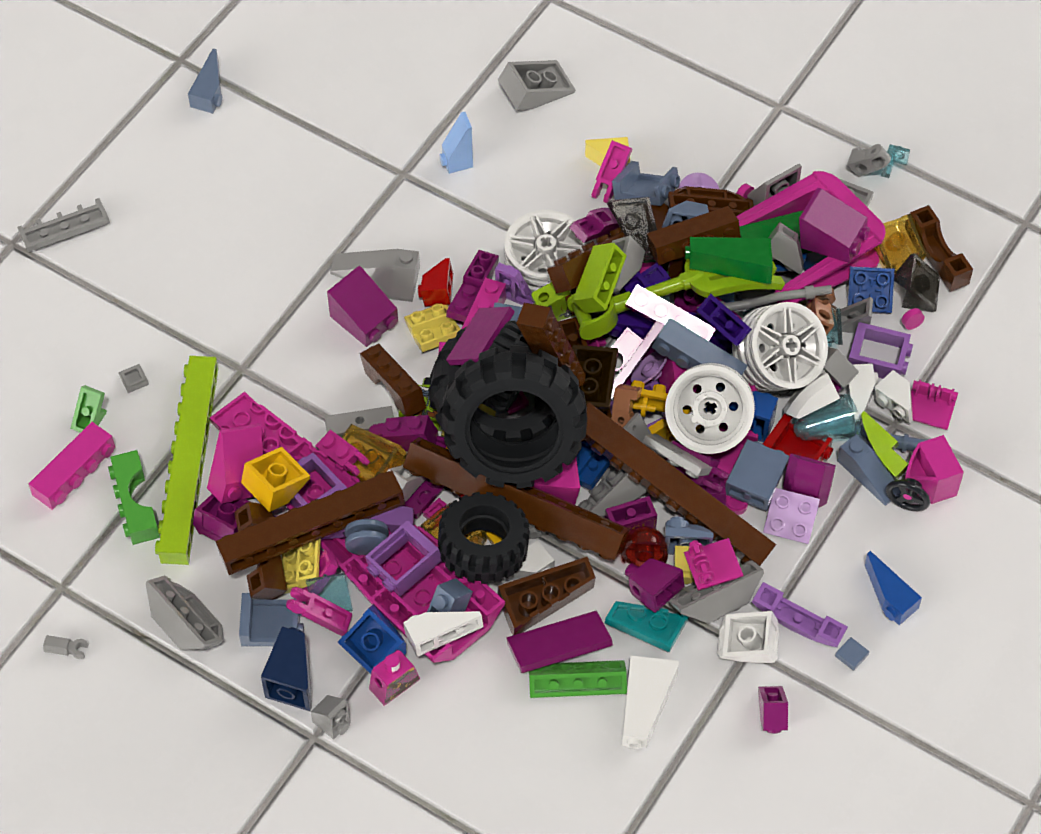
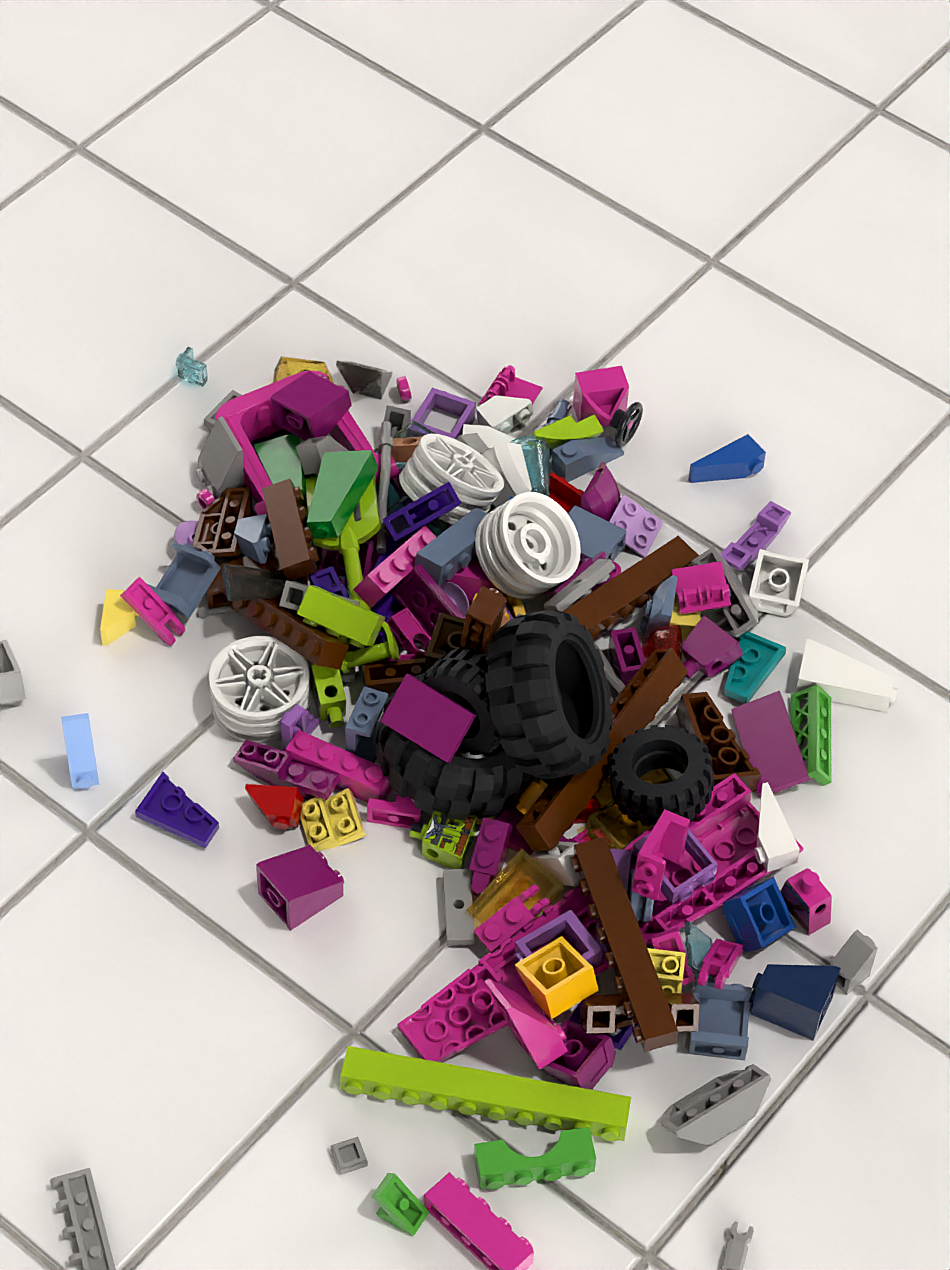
camera: 85 degrees left, 5 degrees down
(381, 522) = (665, 841): none -> dark pink panel
(391, 269) = (234, 872): light grey wedge -> none
(404, 390) = (441, 840): reddish brown arch -> none
(425, 222) = (176, 813): none -> dark purple wing
(450, 597) = (733, 827): sand blue slope -> none
(595, 224) = (240, 623): magenta slope -> none
(773, 709) = (857, 575): magenta slope -> none
(852, 653) = (797, 506): sand blue tile -> none
(869, 159) = (193, 382): light grey leg -> none
(872, 283) = (367, 411): blue tile -> none
(952, 268) = (348, 344): reddish brown arch -> none

